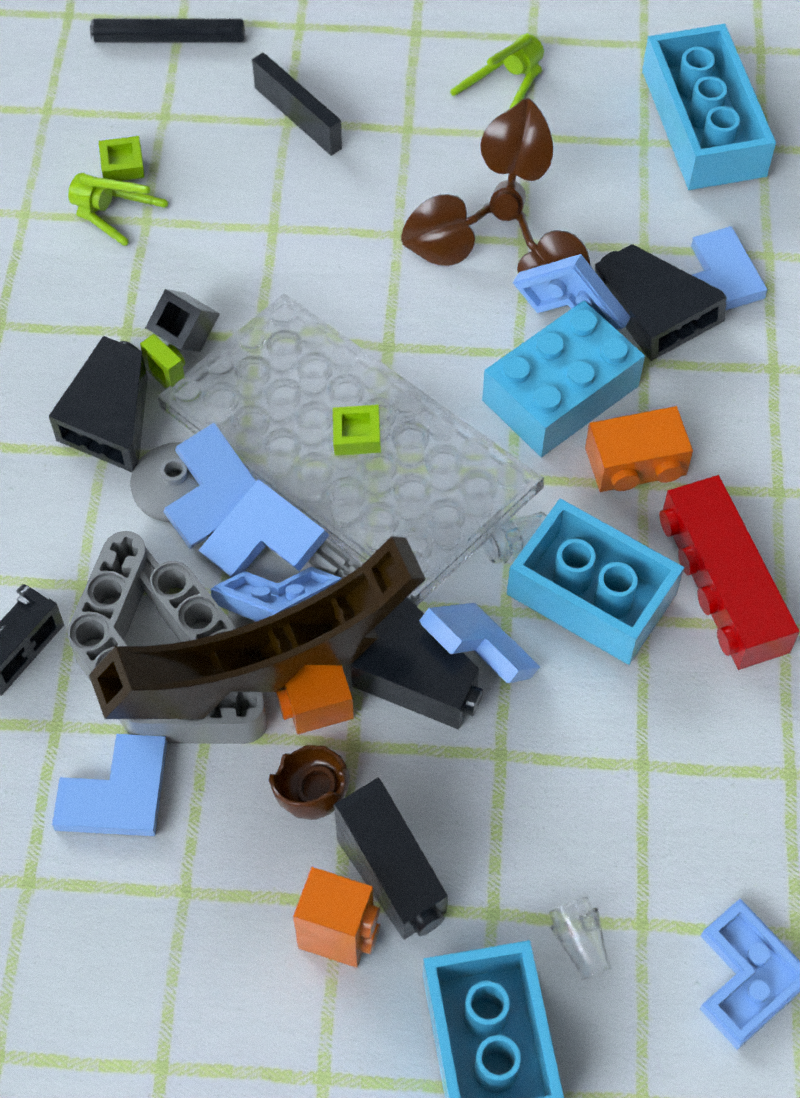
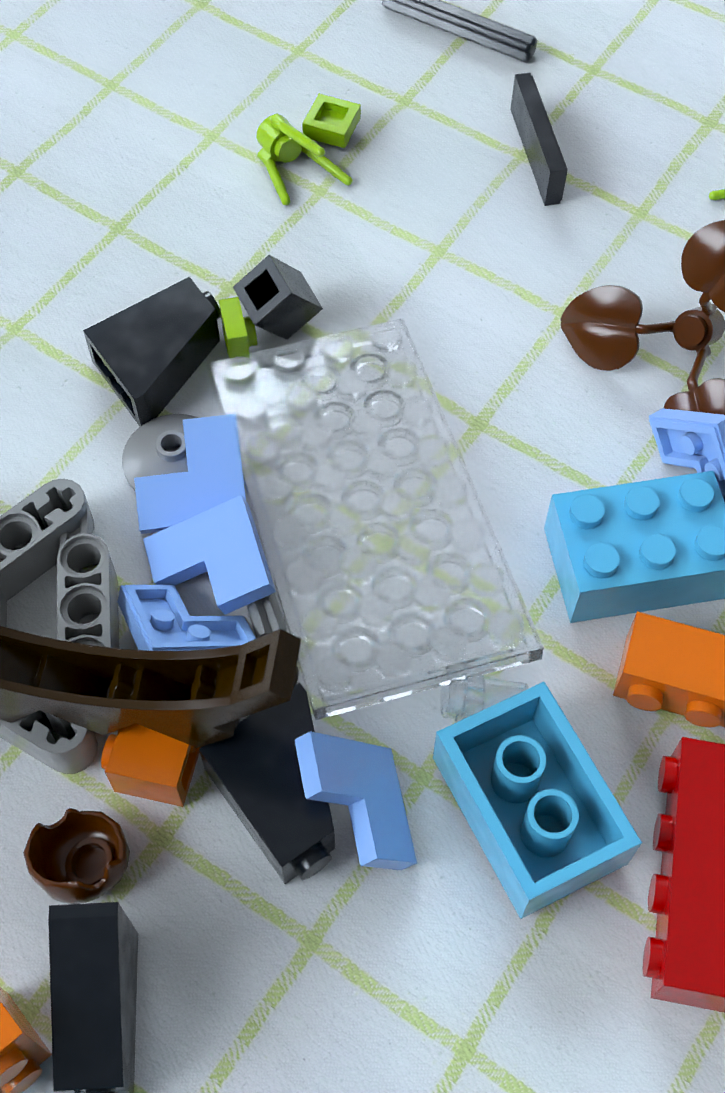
camera: 30 degrees right, 0 degrees up
(356, 430) = (368, 492): lime plate -> none

